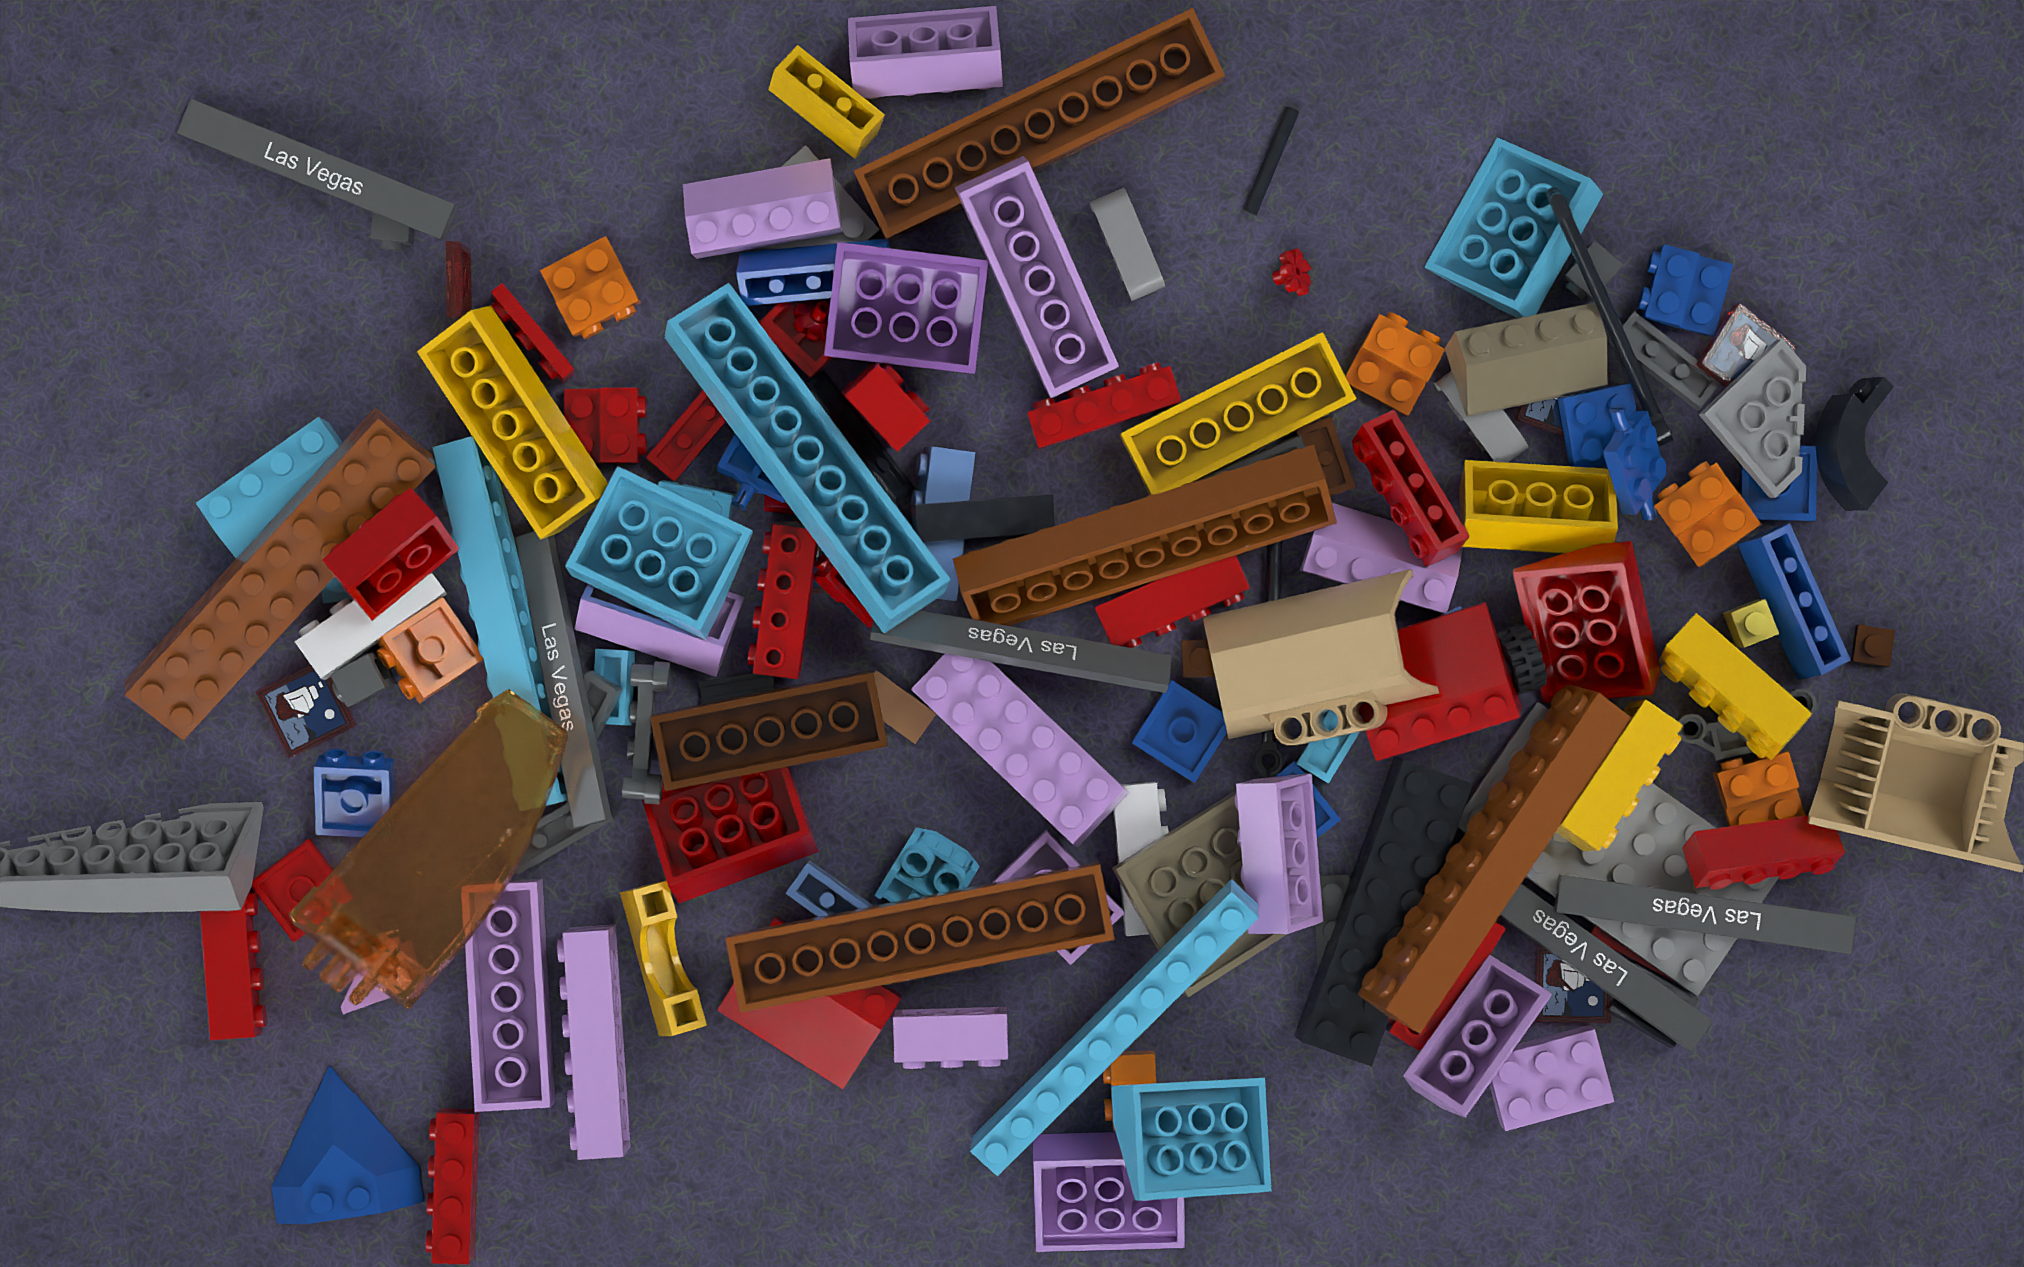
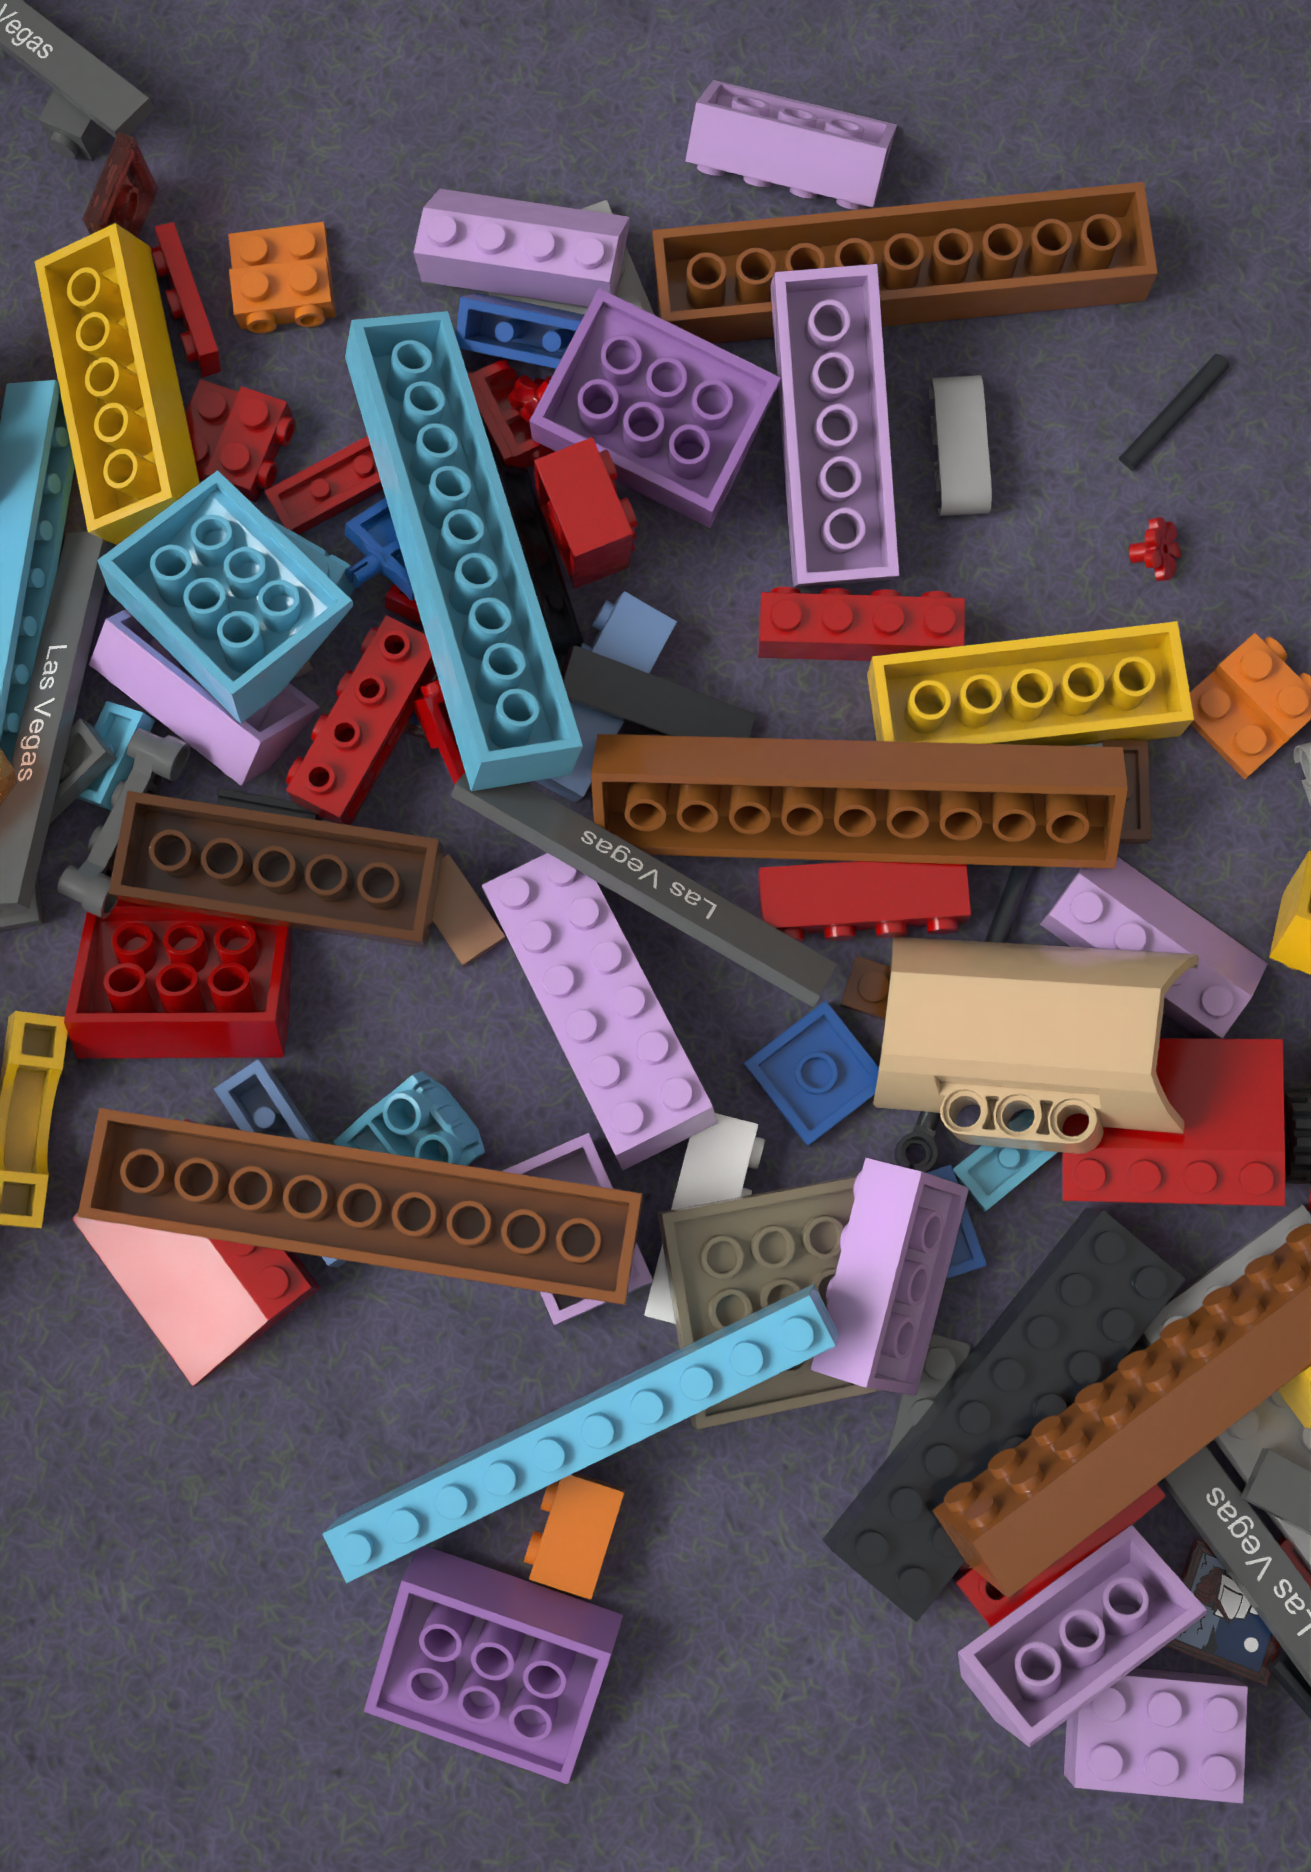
camera: 25 degrees right, 10 degrees down
(826, 101) = (650, 151): yellow brick -> none
(950, 1036) = (356, 1365): lavender brick -> none
(1193, 1137) = (633, 1631): medium azure slope -> none
(1409, 489) = (1226, 861): red brick -> none

